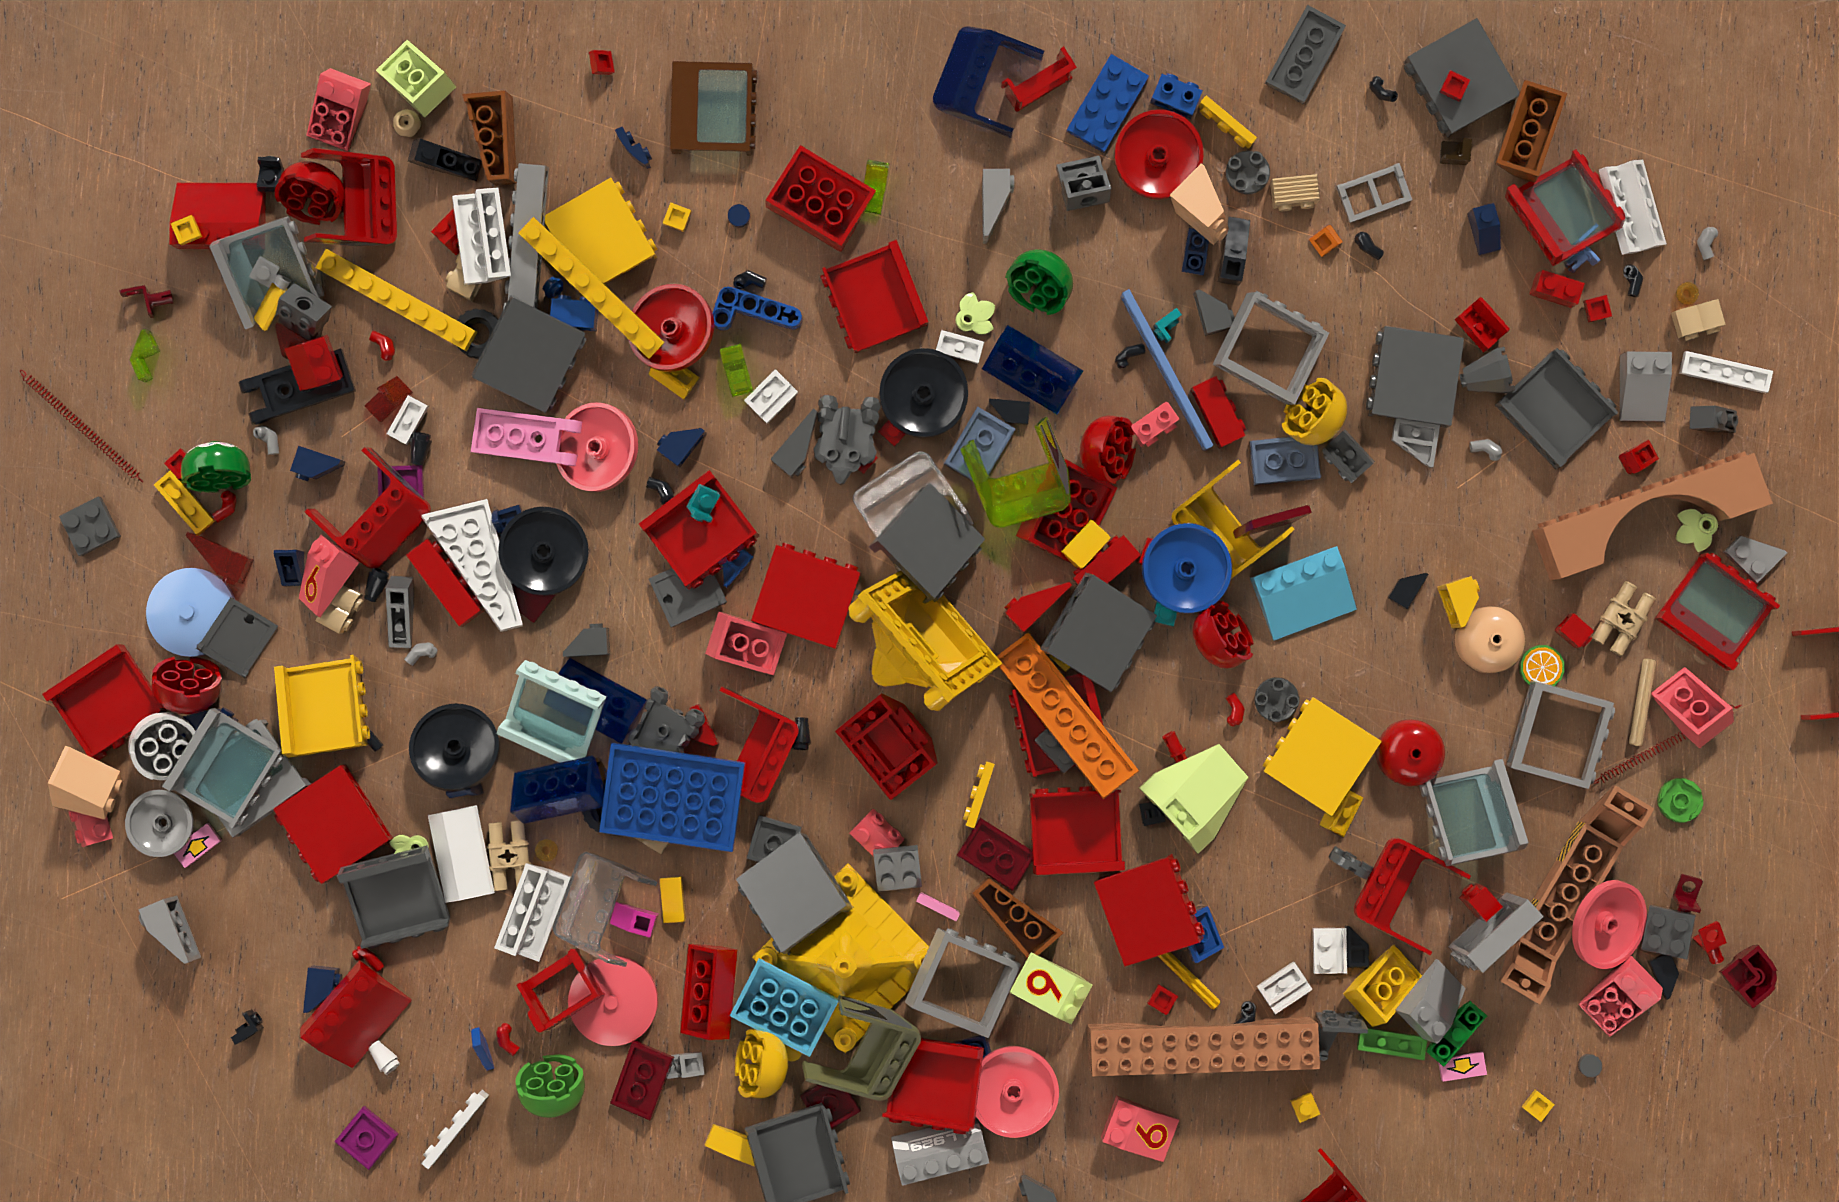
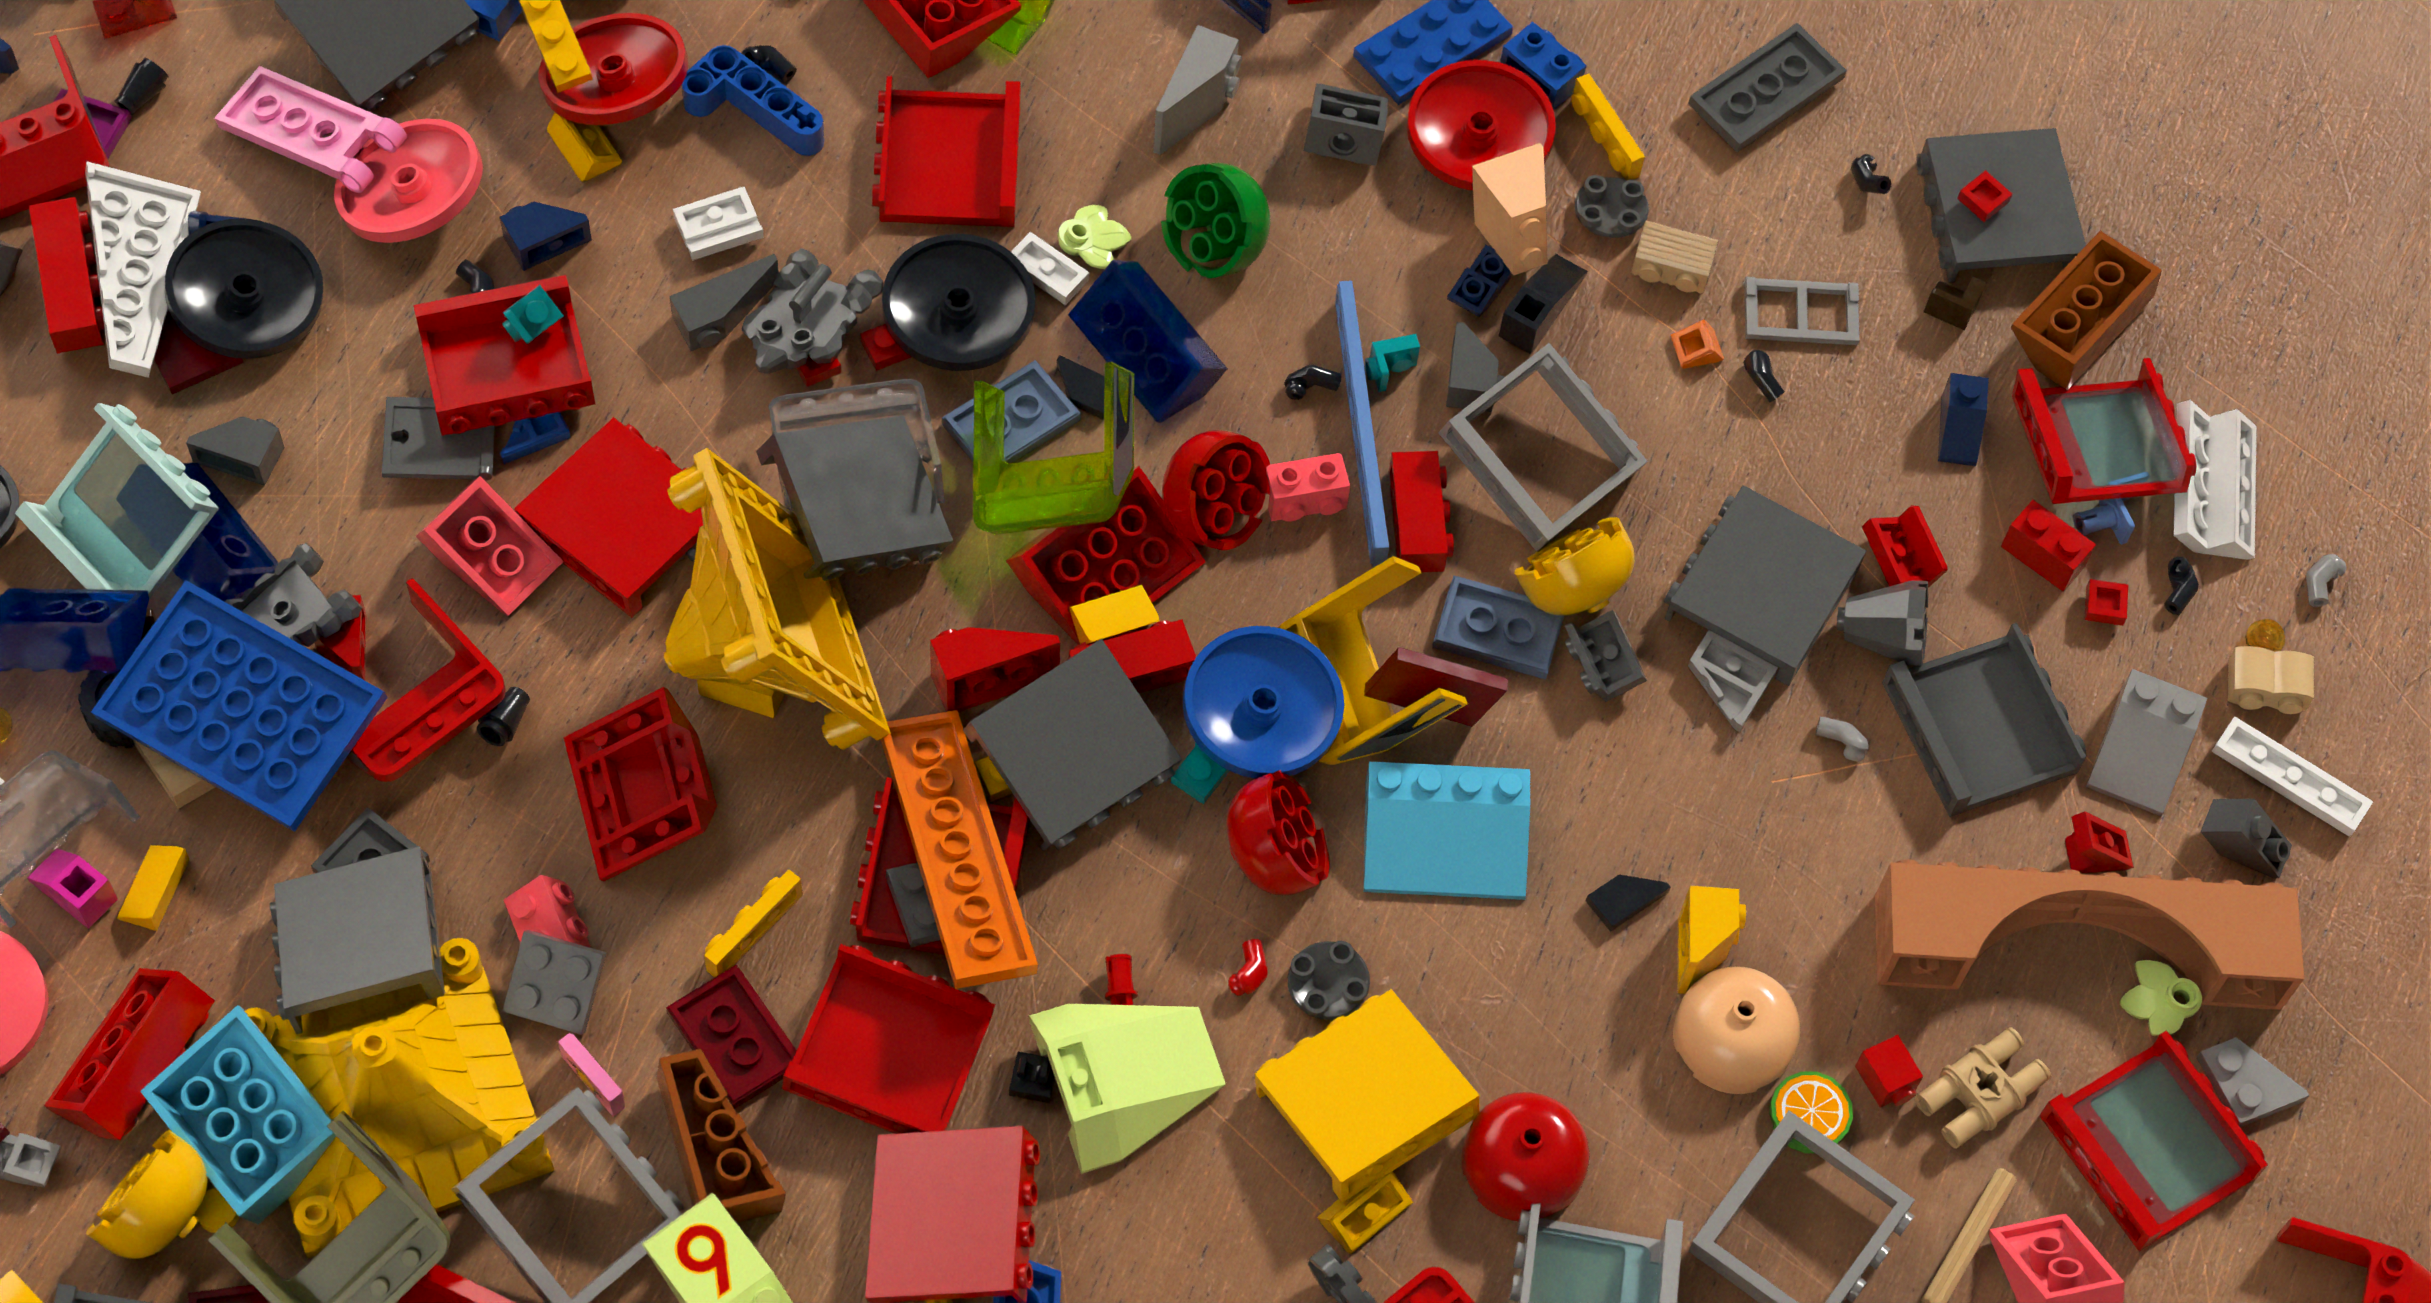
camera: 15 degrees right, 25 degrees down
(407, 420) = (148, 40): white plate -> none
(736, 370) = (682, 167): clear neon green slope -> none

